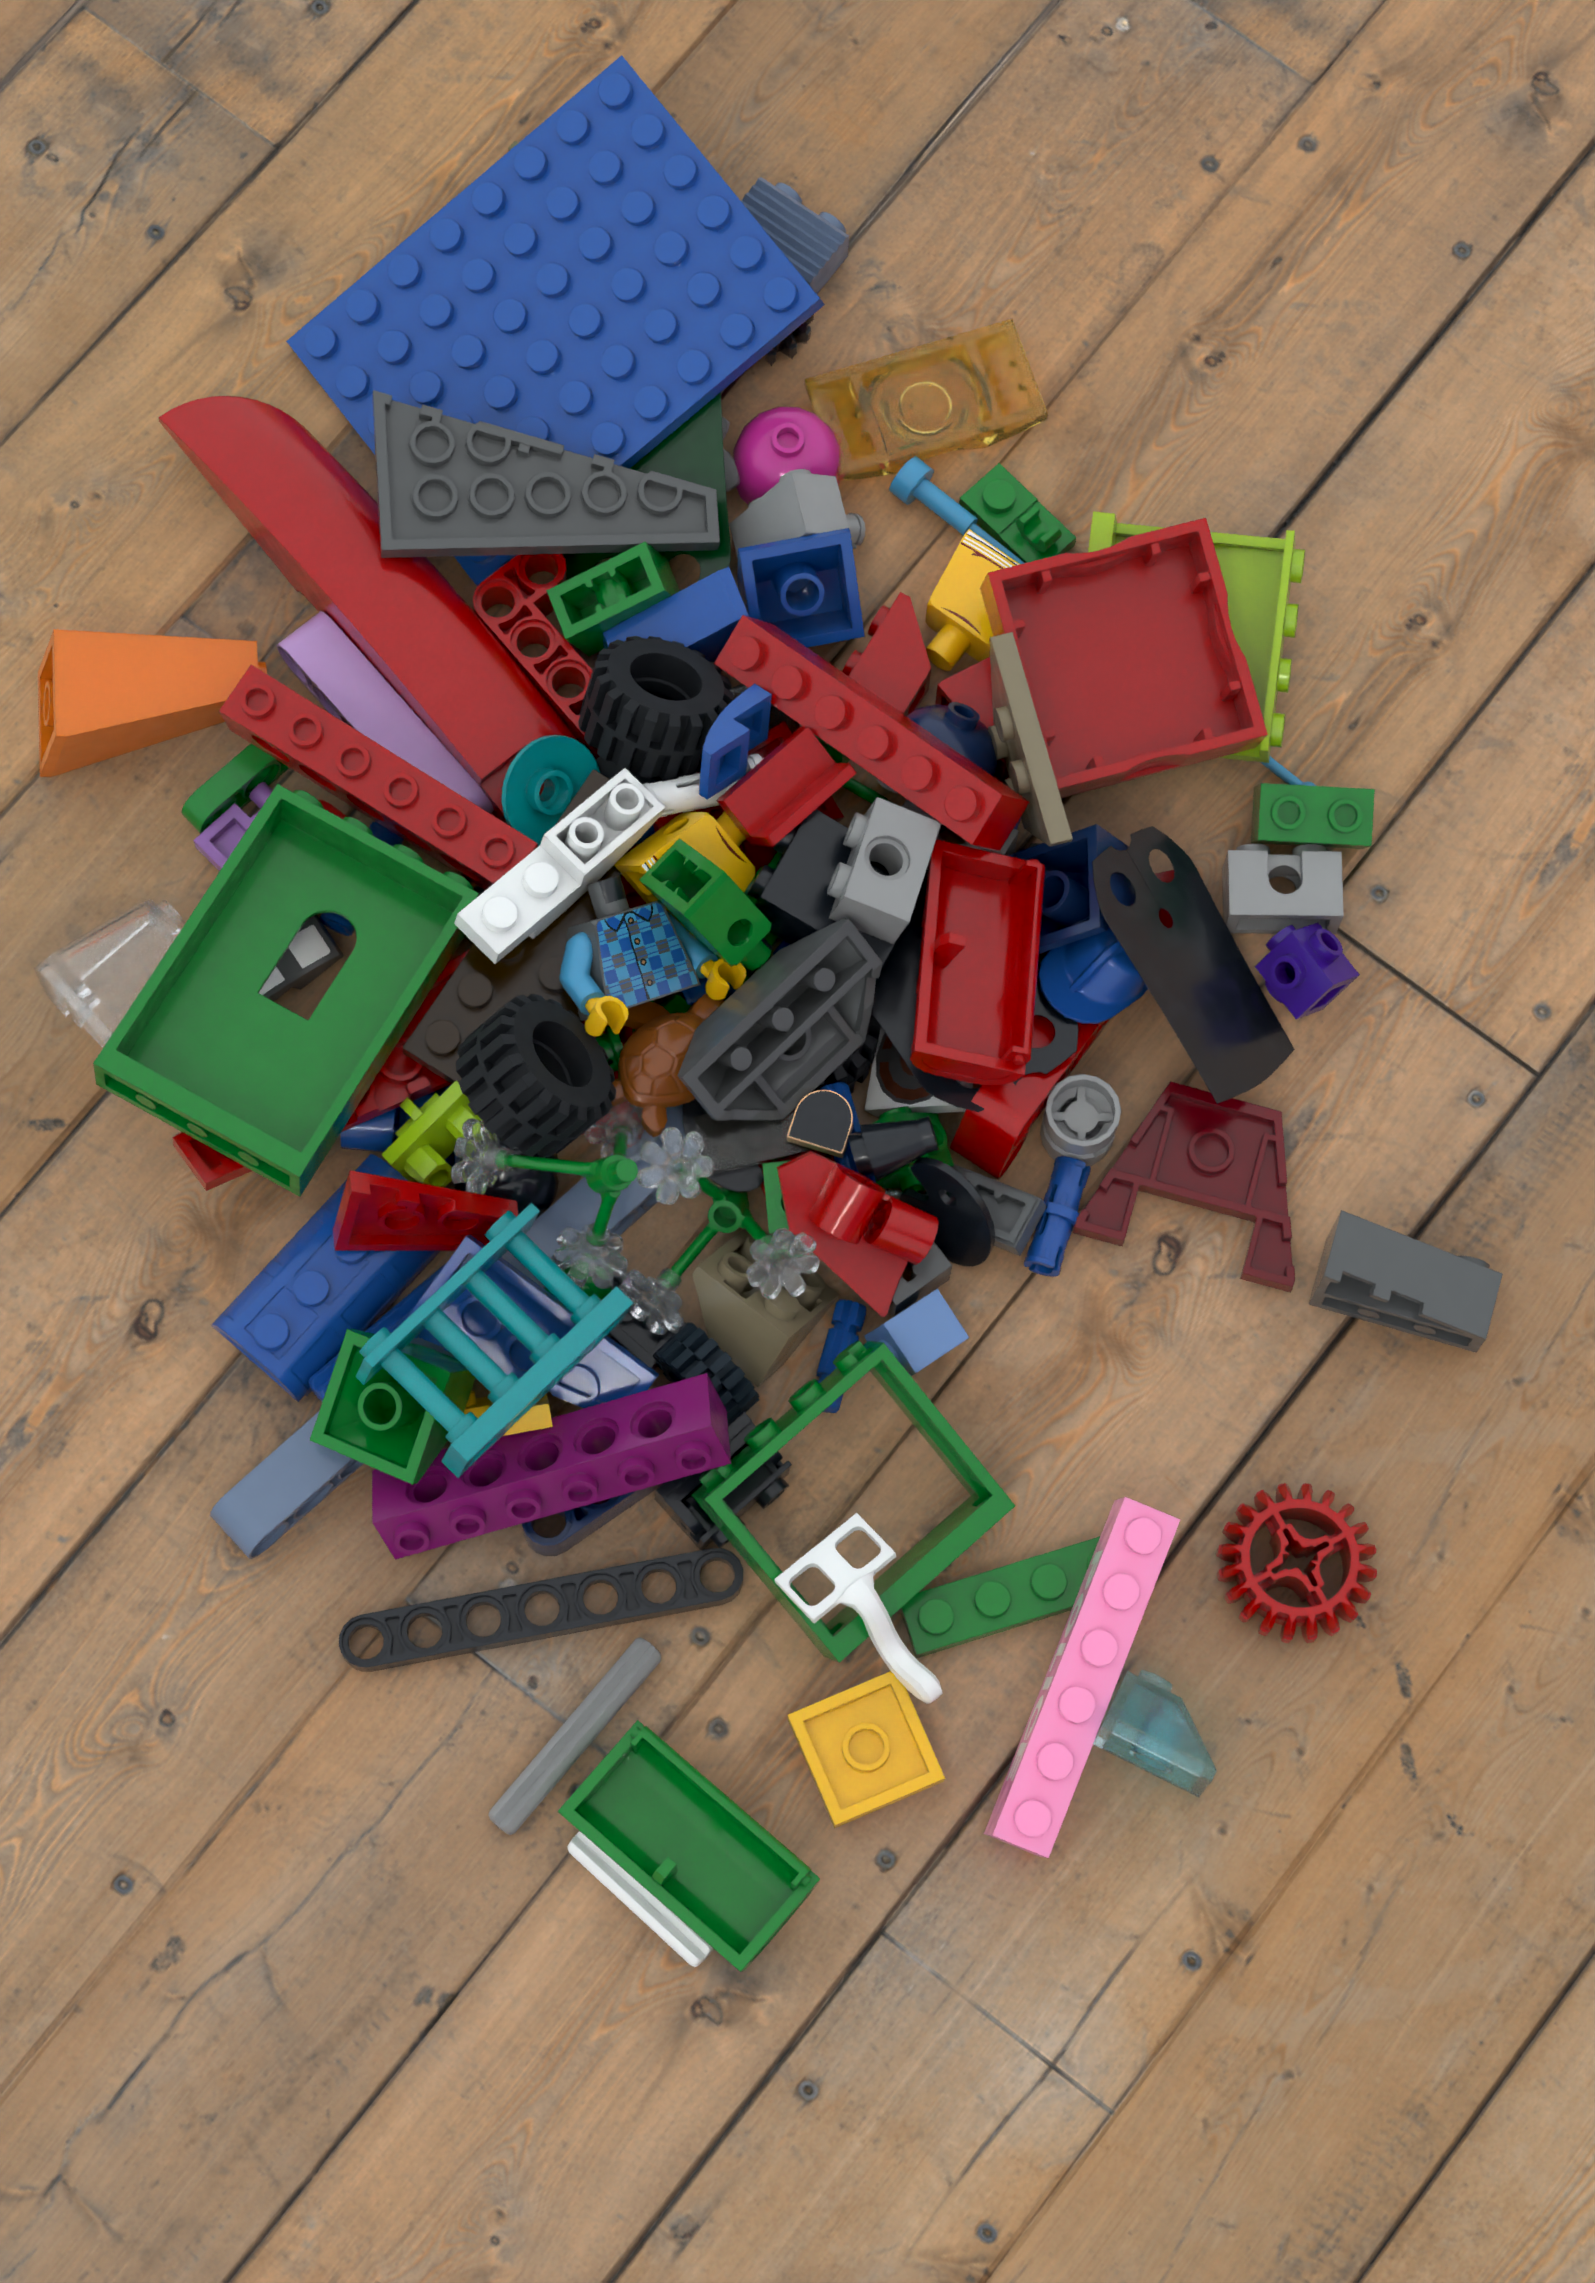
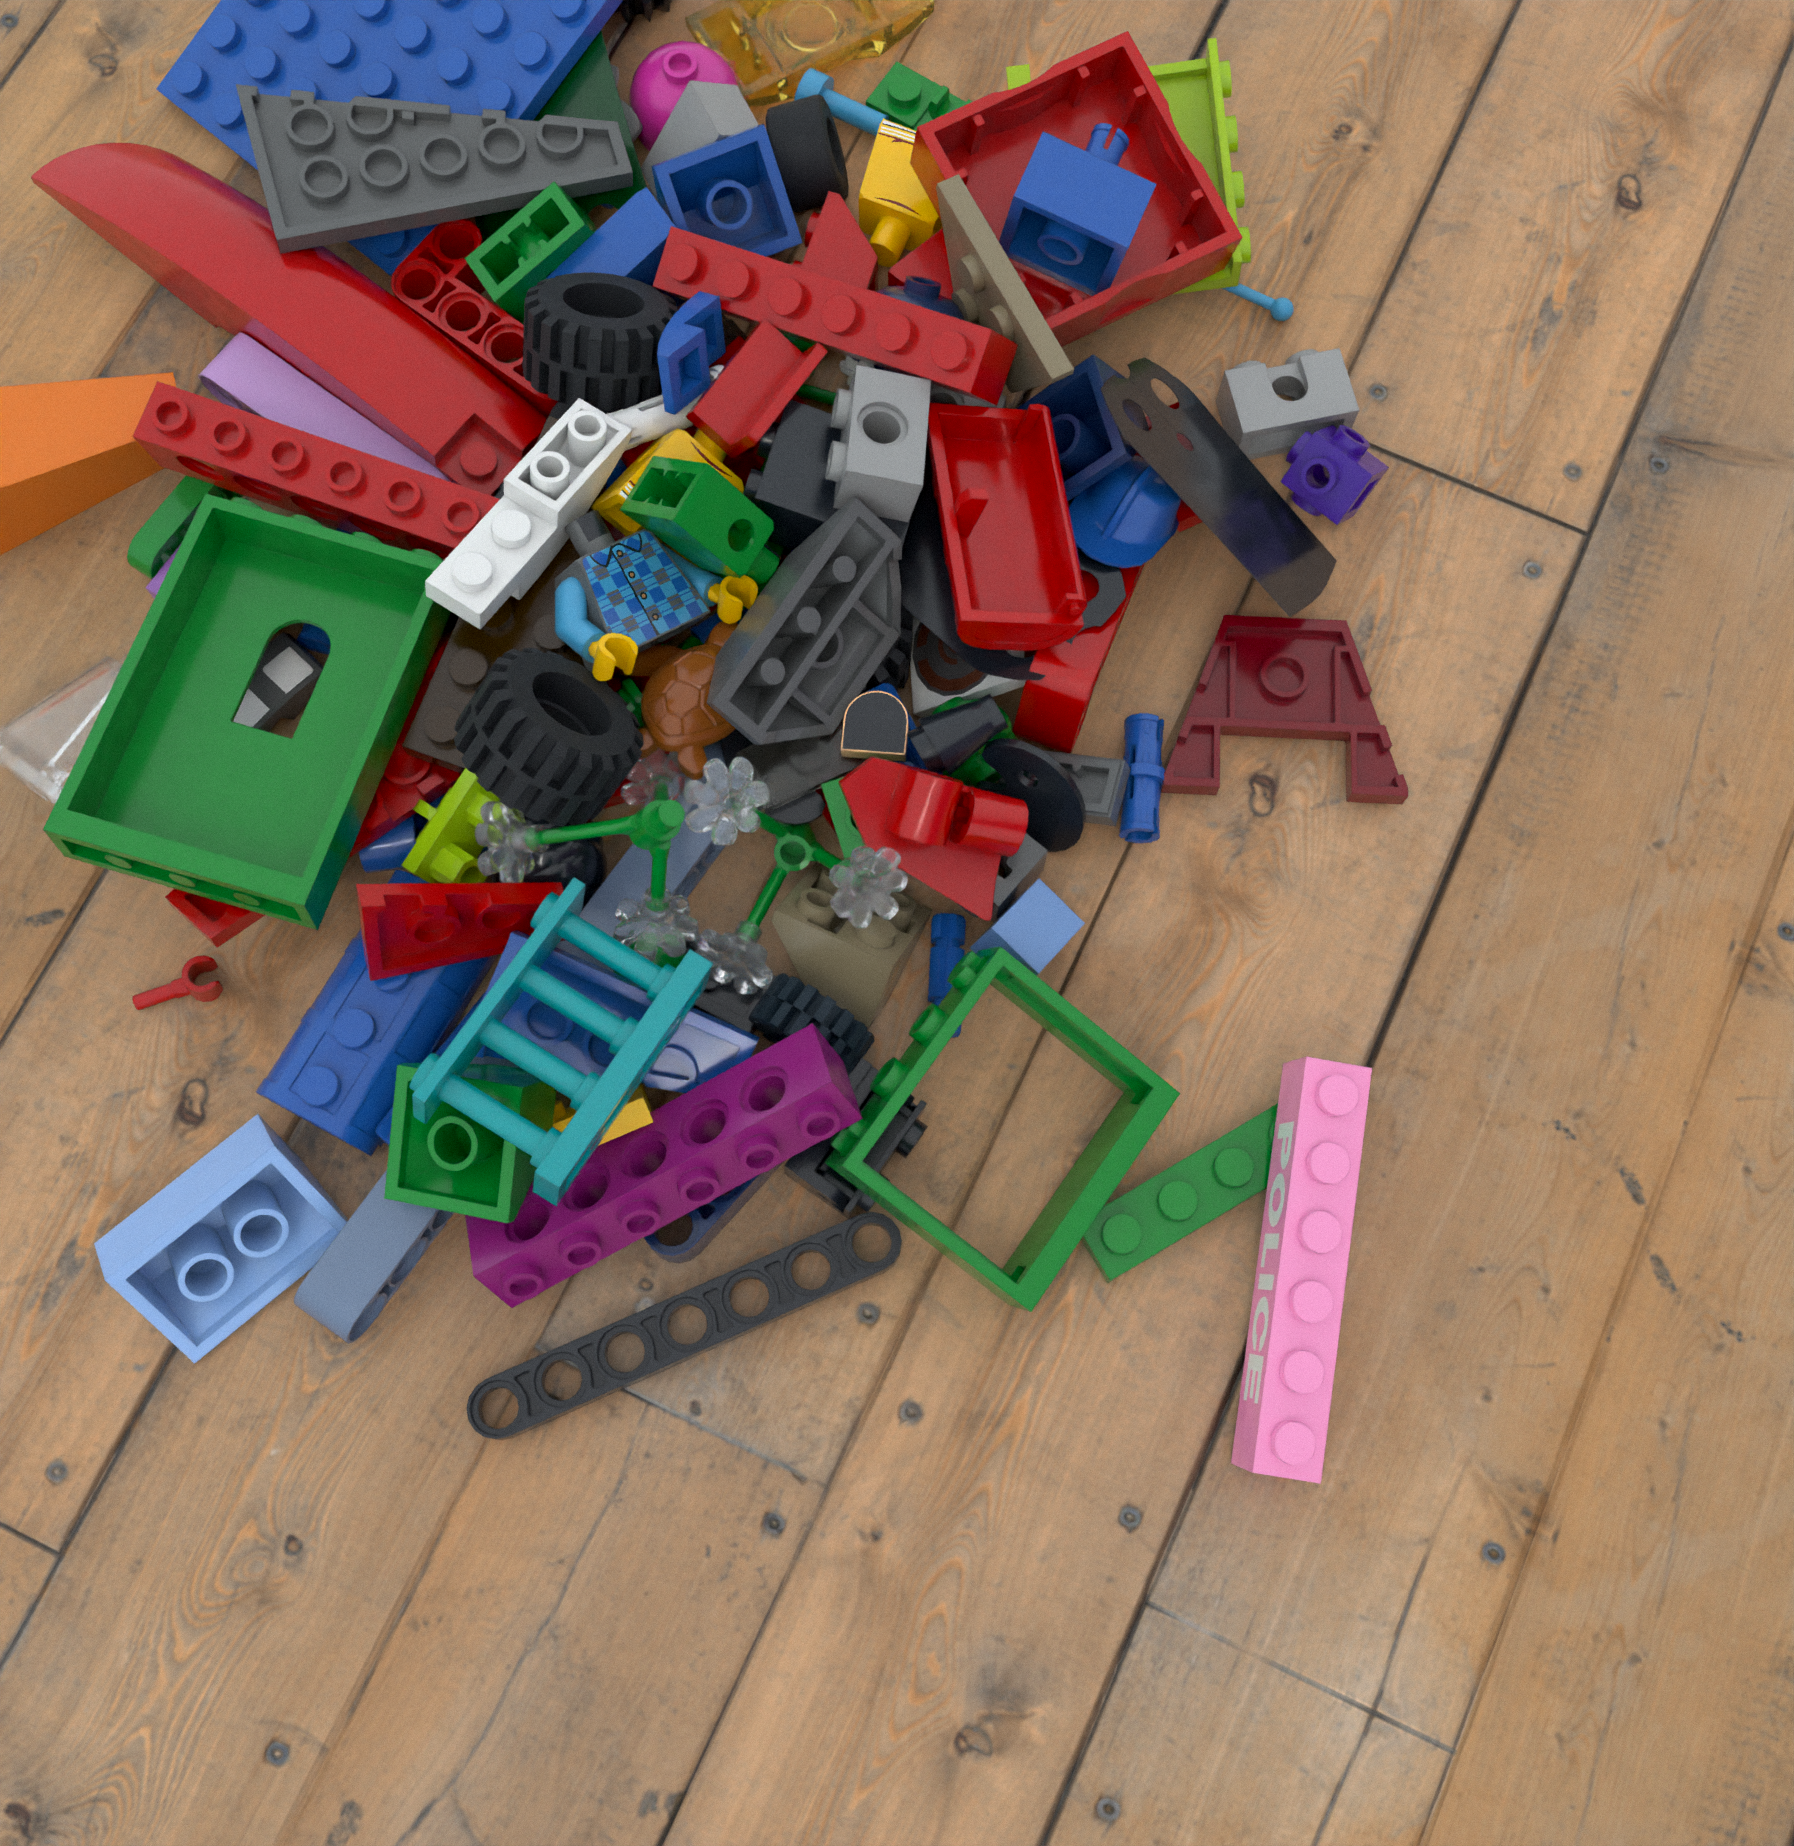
camera: 10 degrees left, 0 degrees up
(159, 1214) = (183, 986): none -> red hand
(159, 1444) = (221, 1239): none -> light blue slope
(562, 767) = (492, 415): teal dish -> none
(574, 1736) = (754, 1462): light grey axle -> none
(640, 1901) = (870, 1629): white axle -> none
(690, 1846) = (912, 1564): green container -> none
(857, 1591) = (1035, 1229): white piece -> none
(865, 1748) = (1080, 1399): yellow plate -> none
(890, 545) = (807, 151): none -> black tyre
(1080, 1119) = (1143, 670): light grey wheel -> none
(1117, 680) = (1076, 210): none -> blue brick
(1156, 1733) = (1404, 1311): clear light blue slope -> none
(1309, 1589) = (1510, 1105): red gear -> none
(1312, 815) = (1297, 318): green brick -> none
(1405, 1284) = (1522, 766): dark grey wedge -> none

